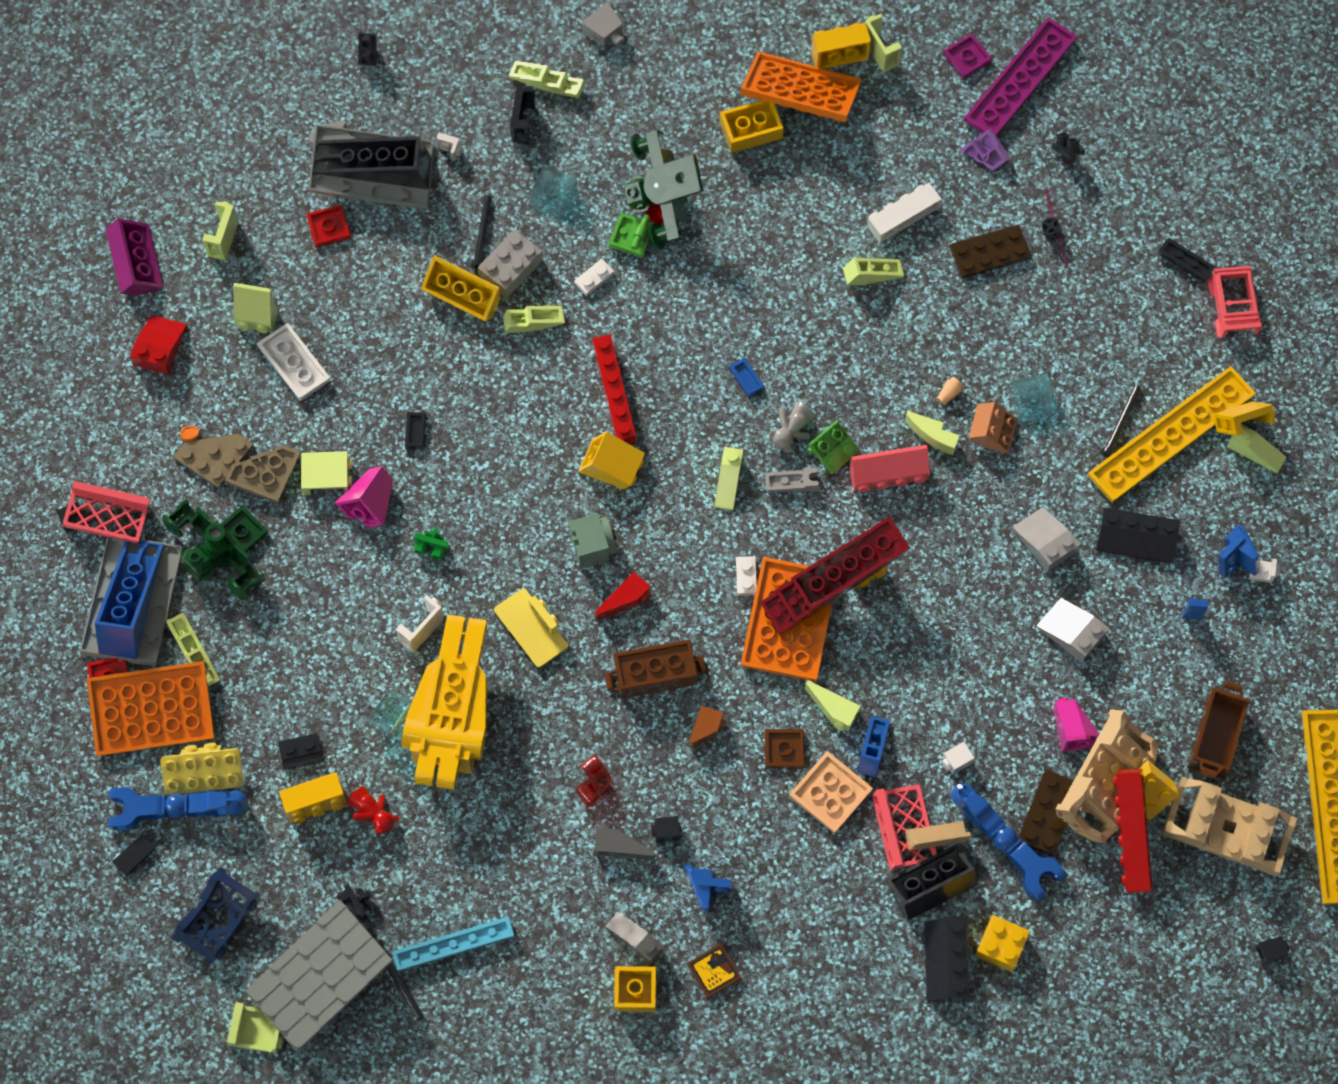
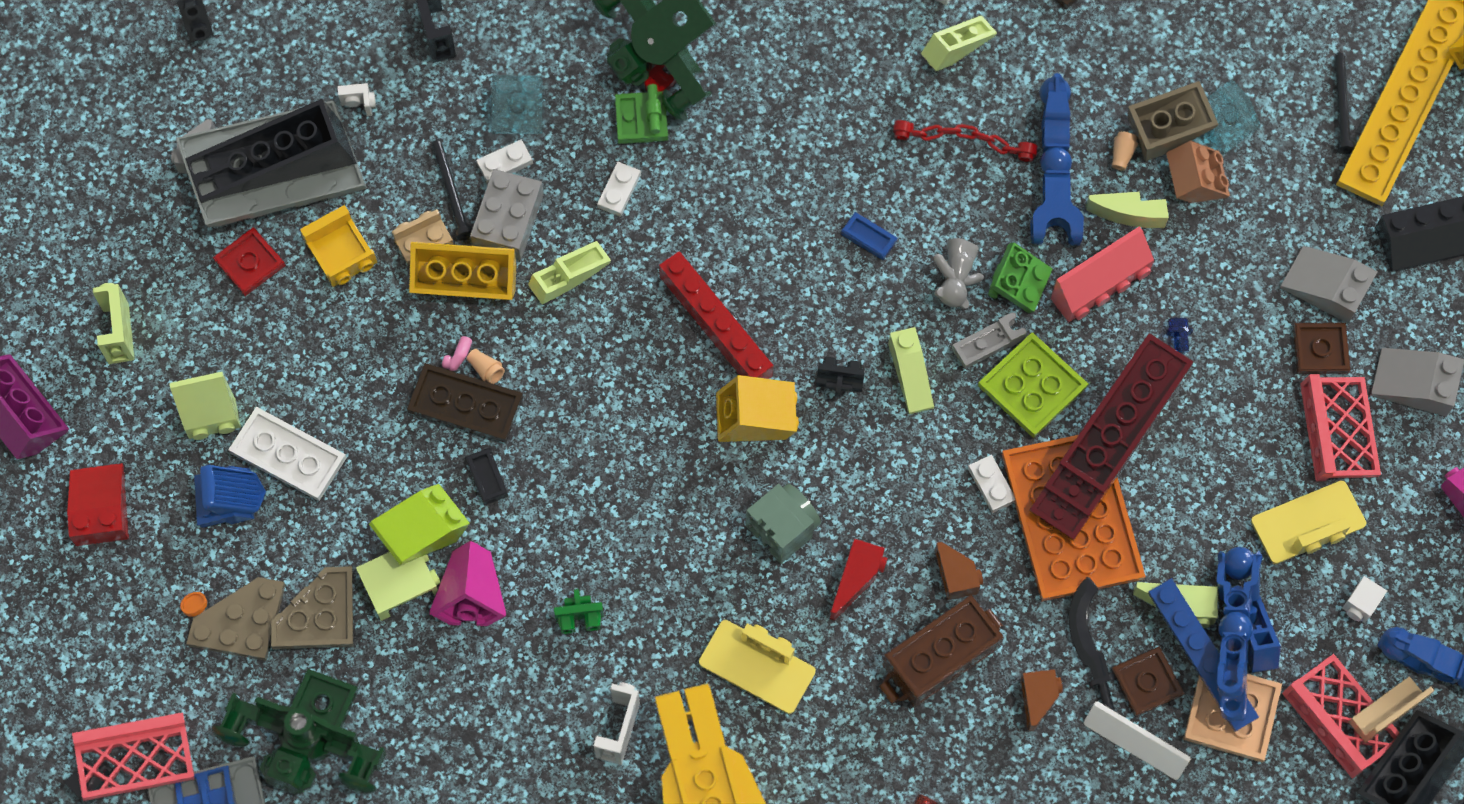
camera: 25 degrees left, 0 degrees up
(242, 372) = (227, 495): none -> blue piece
(355, 442) = (420, 524): none -> lime slope
(390, 239) = (338, 246): none -> yellow panel
(423, 376) = (465, 402): none -> dark brown plate
(434, 344) = (459, 356): none -> bright pink arm
(448, 359) = (486, 367): none -> light nougat cone
(452, 252) = (425, 229): none -> tan bracket
(528, 227) = (507, 159): none -> white plate
(679, 464) = (840, 377): none -> black hips
(692, 624) = (957, 572): none -> dark orange slope
(754, 706) = (1083, 641): none -> black sword
(756, 783) = (1136, 740): none -> white slope
(805, 316) = (1025, 150): none -> red piece
(806, 522) = (1033, 385): none -> lime plate
(827, 745) = (1195, 643): none -> blue plate
(856, 736) = (1236, 625): none -> blue piece
(896, 381) = (1056, 165): none -> blue piece
(926, 527) = (1180, 331): none -> clear blue piece
(948, 692) = (1308, 522): none -> light yellow bracket
(986, 637) = (1319, 424): none -> coral fence
(990, 382) = (1171, 119): none -> dark tan slope
(1018, 581) = (1321, 348): none -> reddish brown tile

